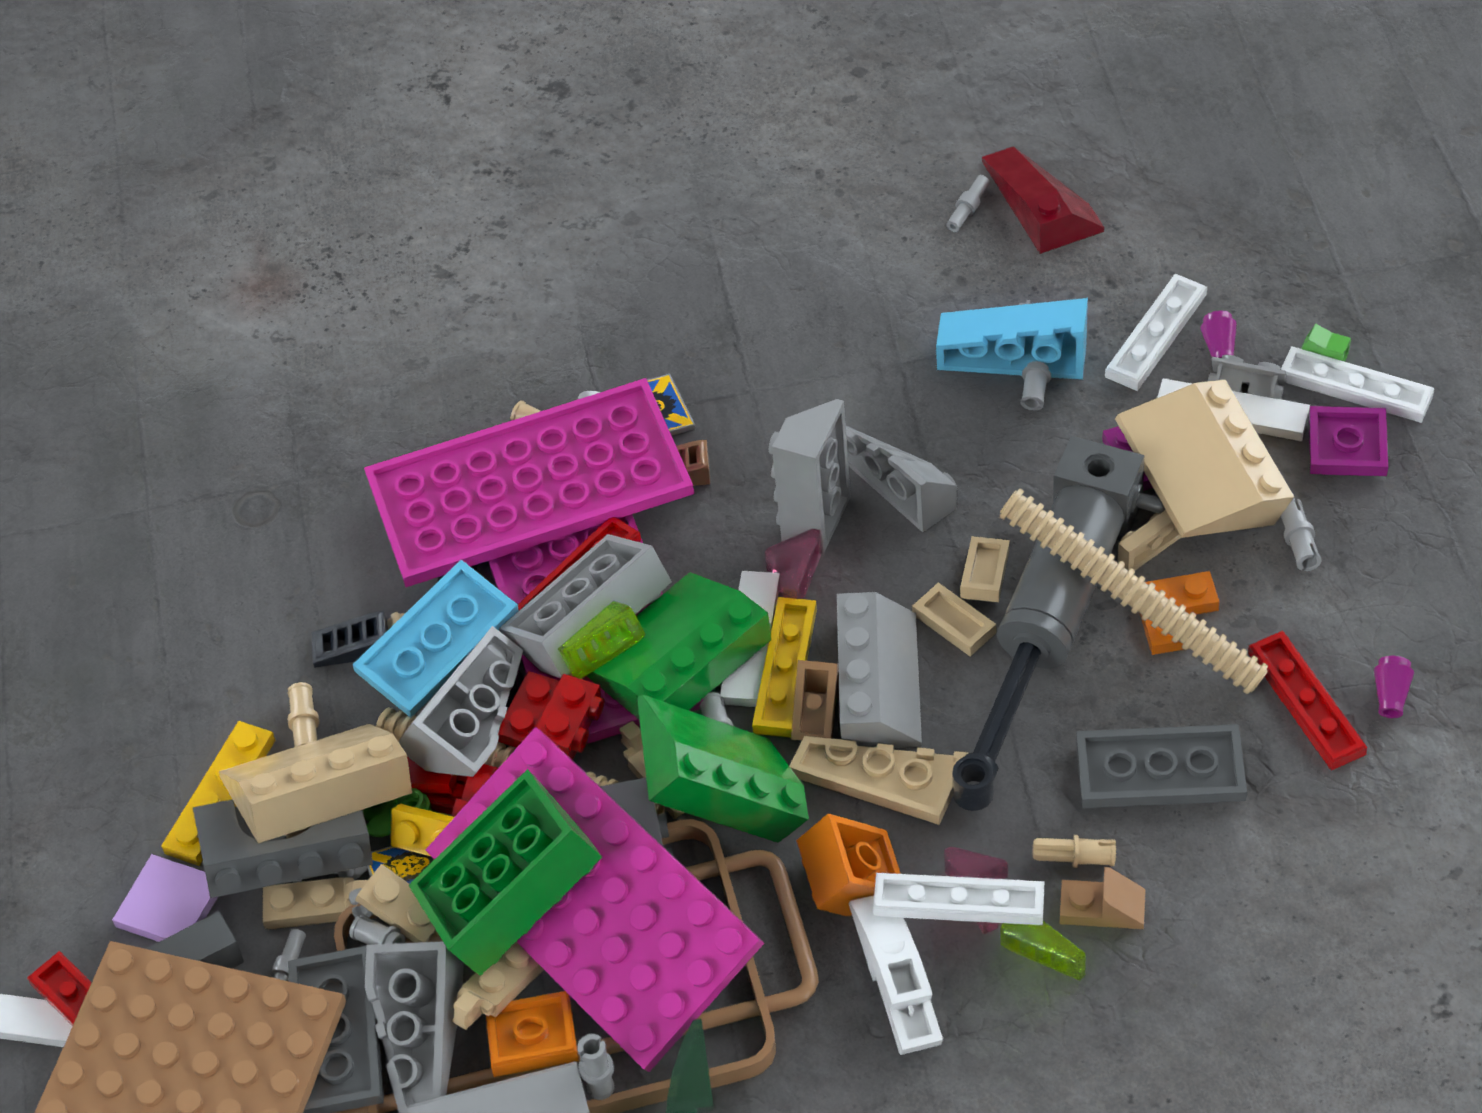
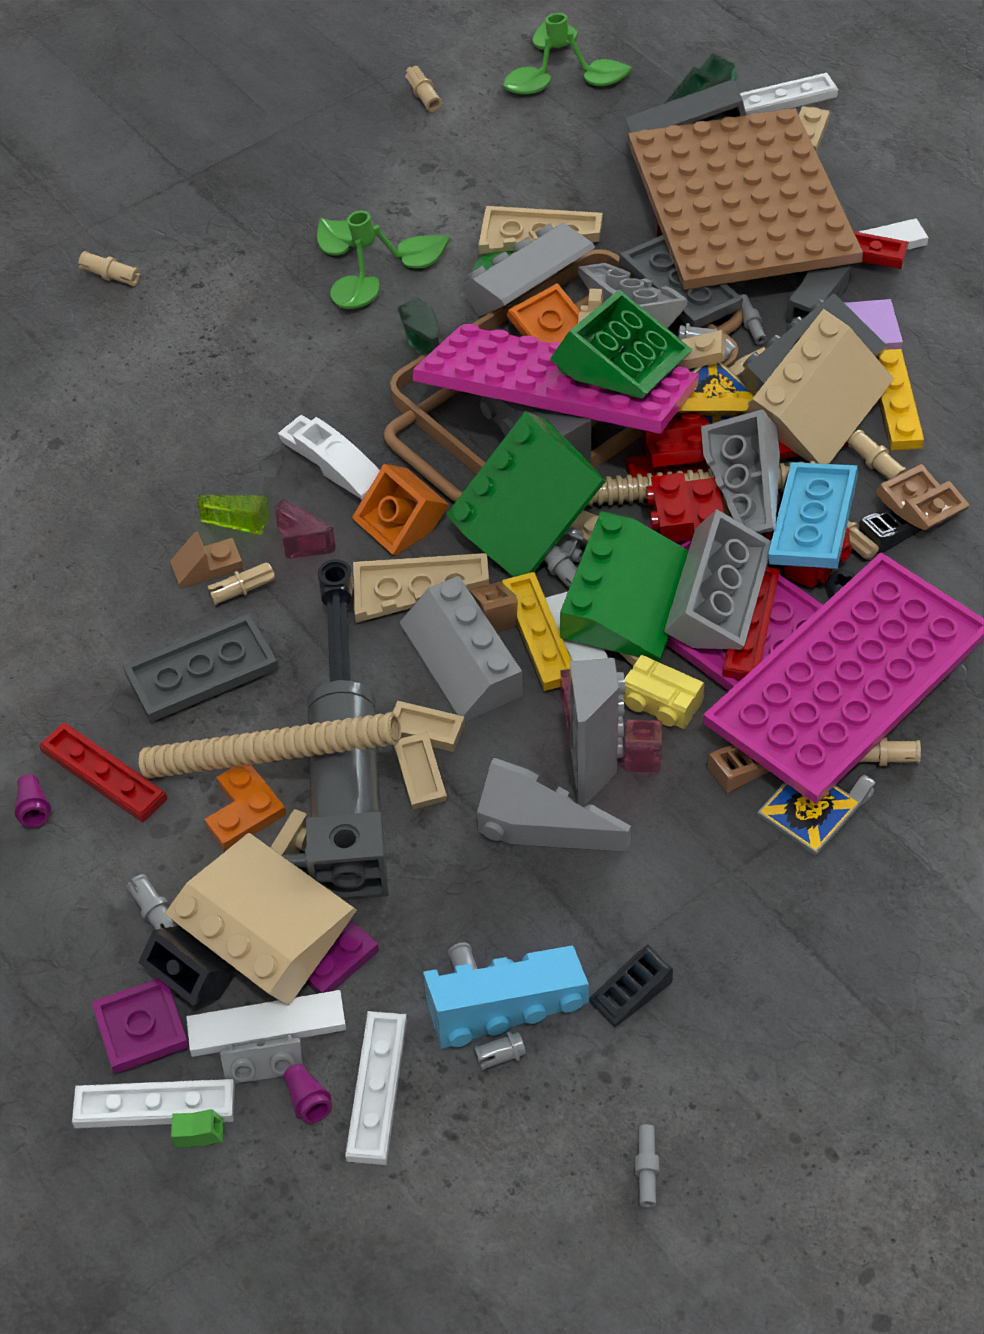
camera: 150 degrees right, 0 degrees up
(302, 649) = (920, 498): none -> medium nougat slope
(596, 1066) = (487, 302): light grey pin -> none
(624, 633) = (680, 557): clear neon green slope -> none
(705, 547) = (663, 692): none -> light yellow brick
(754, 505) = (643, 746): none -> clear pink slope
(881, 334) = (645, 958): none -> black slope
(959, 898) = (302, 493): white tile -> none
(1042, 204) = (564, 1197): dark red wedge -> none
(1294, 456) = (186, 965): none -> black brick

